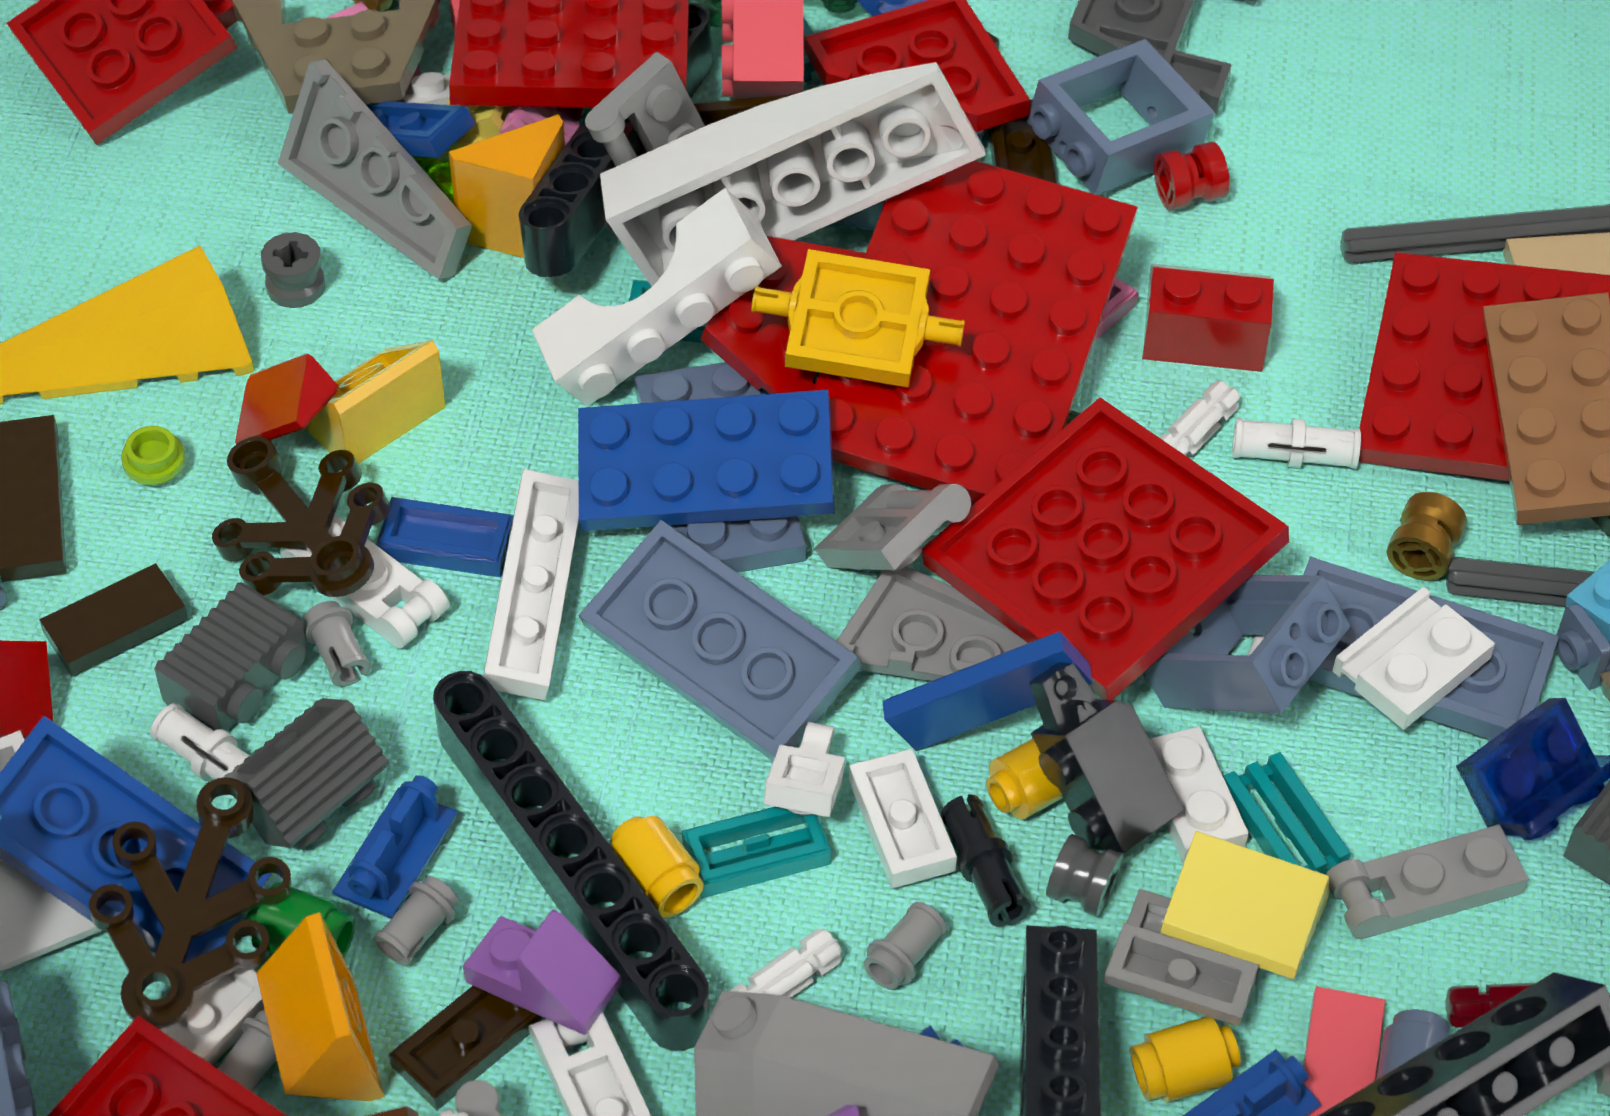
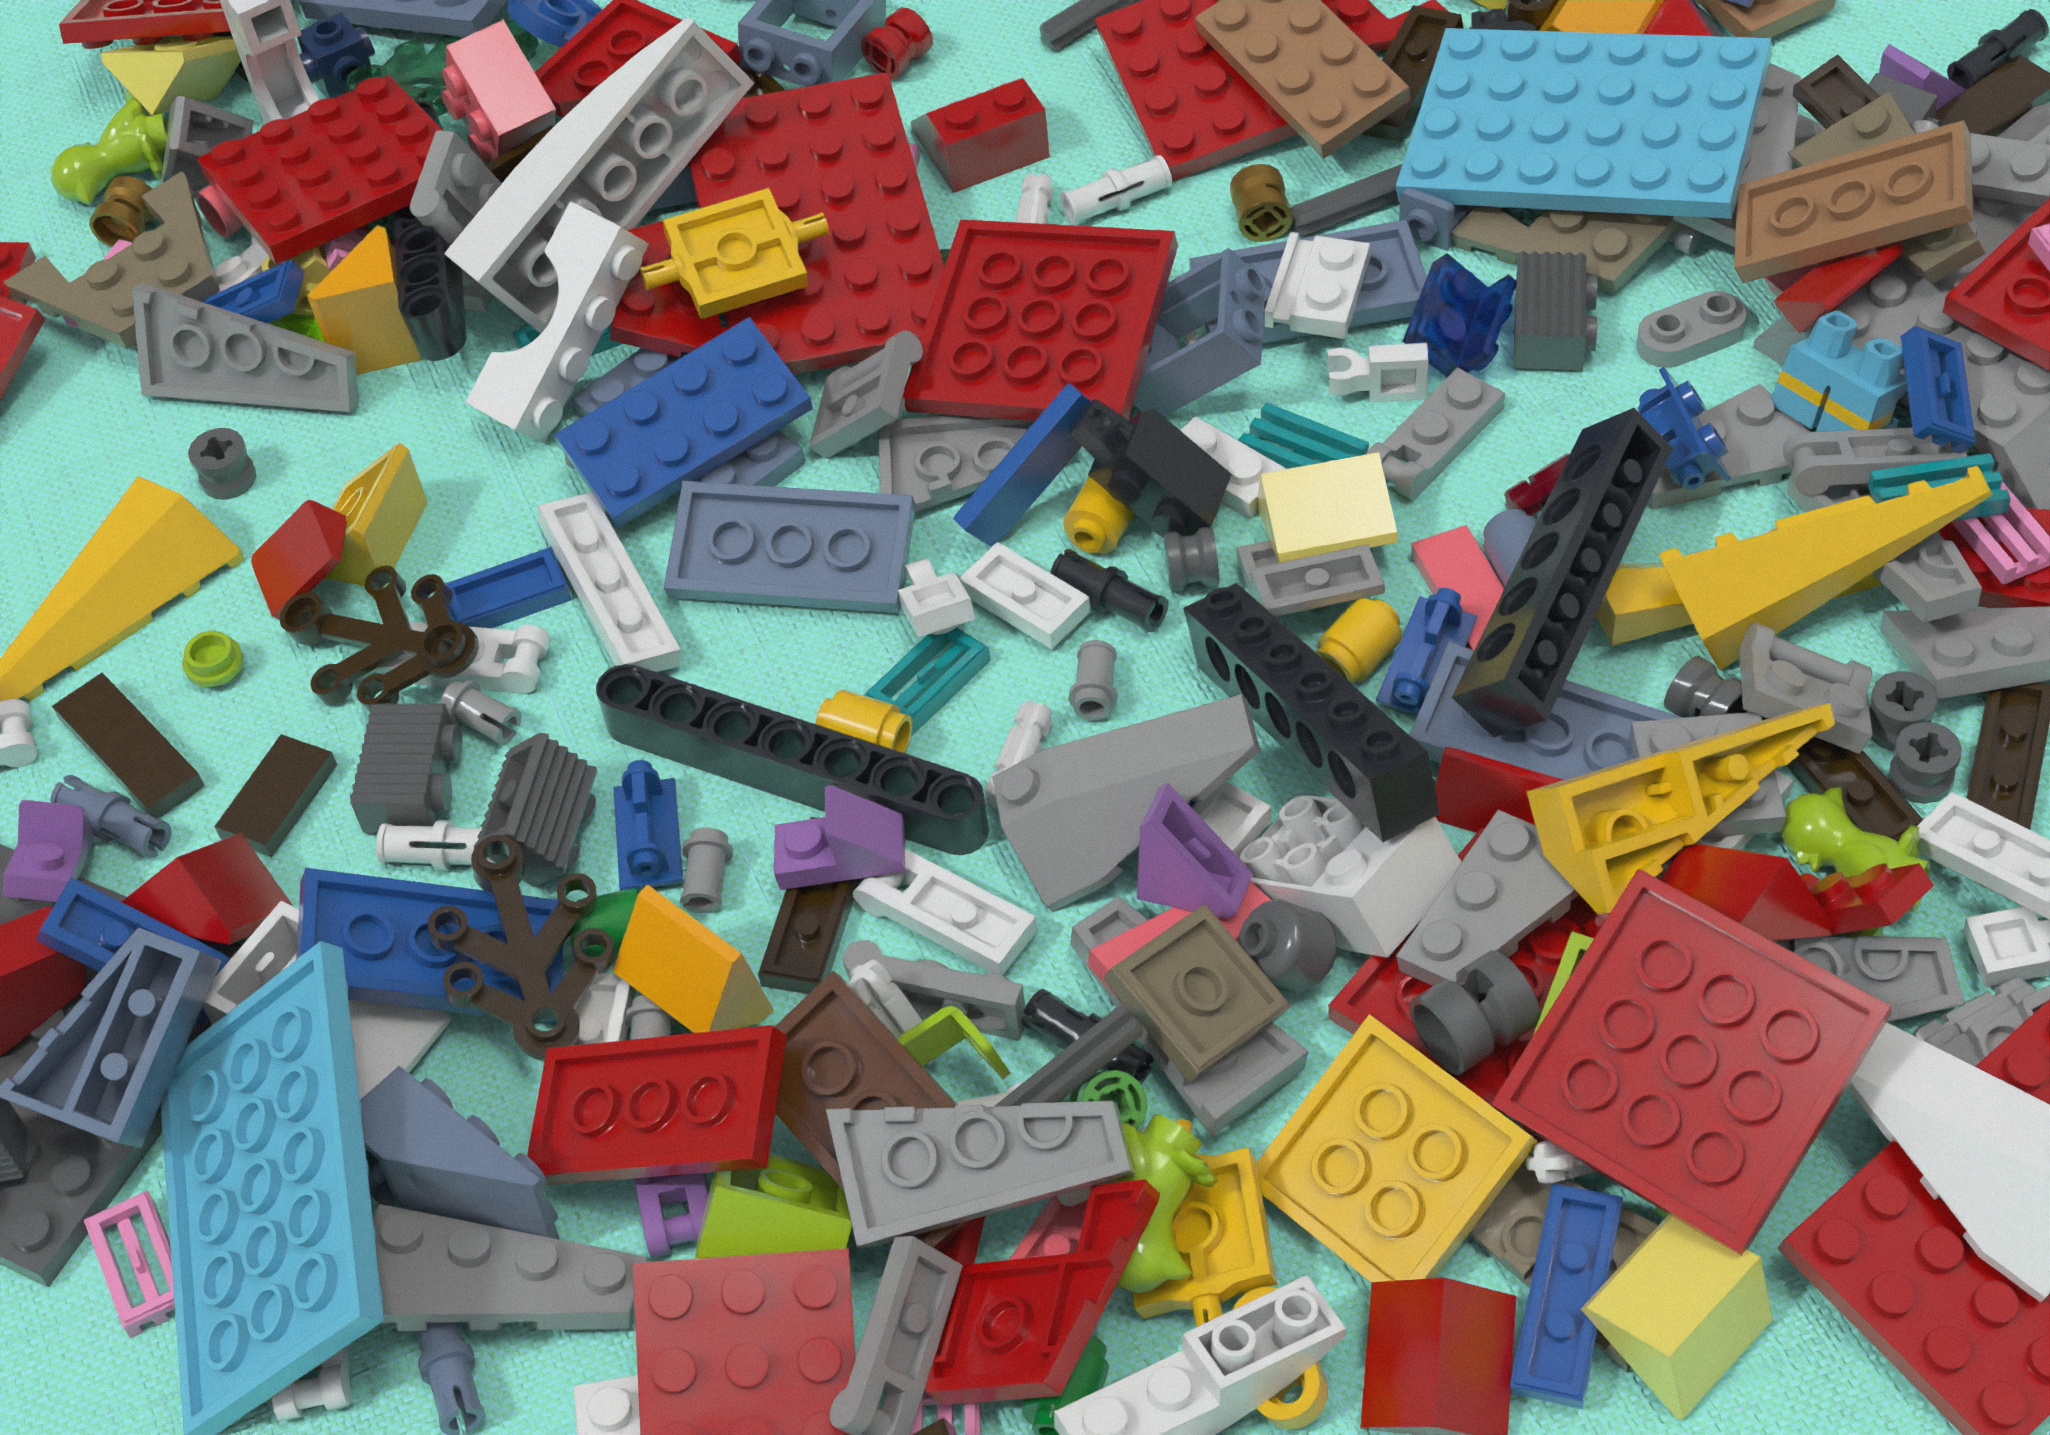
camera: 25 degrees left, 0 degrees up
(1420, 788) = (1388, 374): none -> white plate

